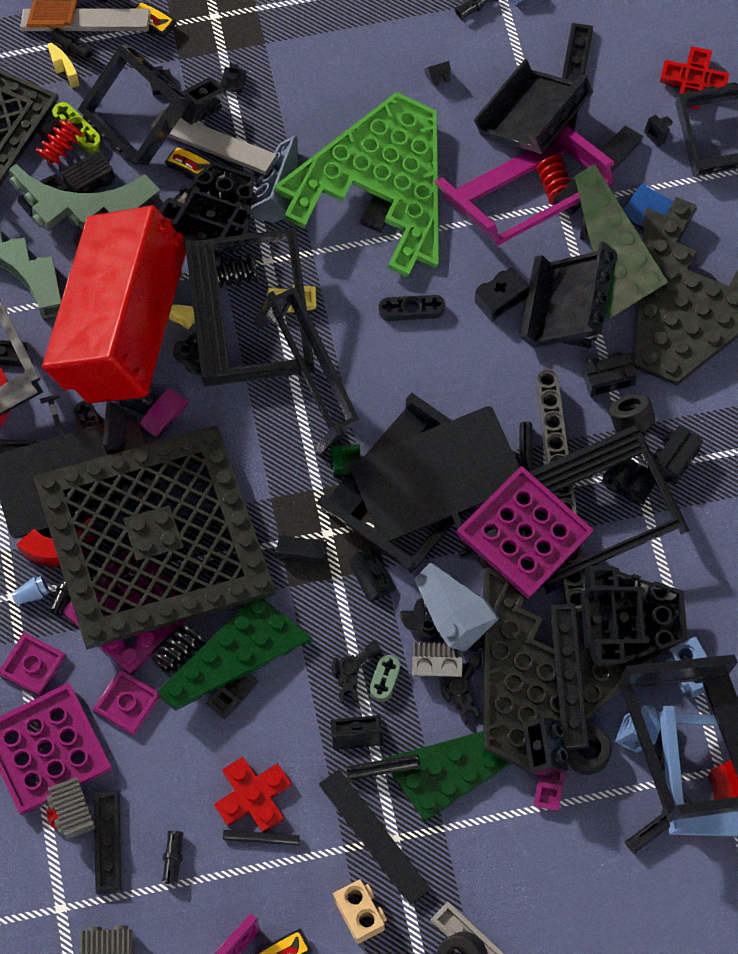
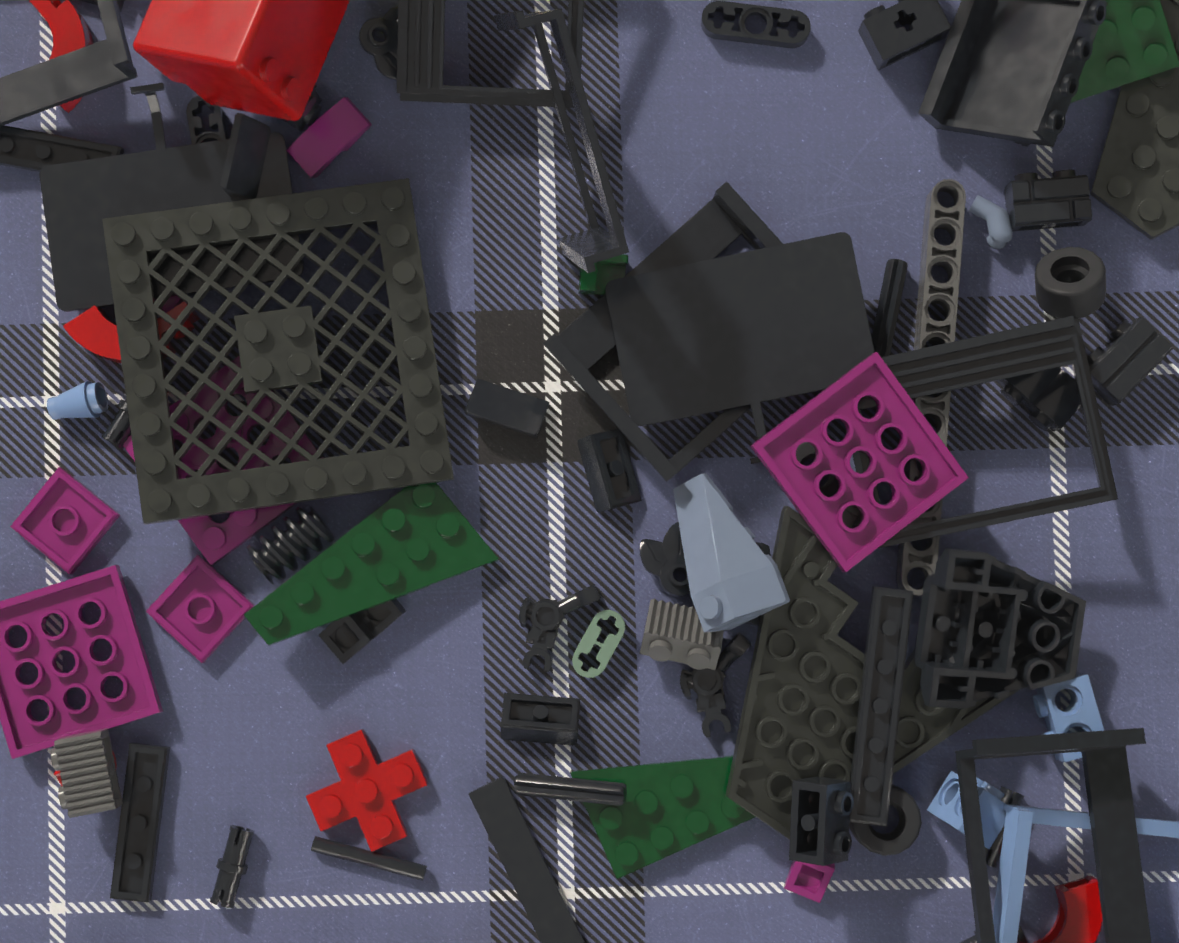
camera: 10 degrees right, 20 degrees up
(581, 390) = (997, 221): none -> sand blue arm

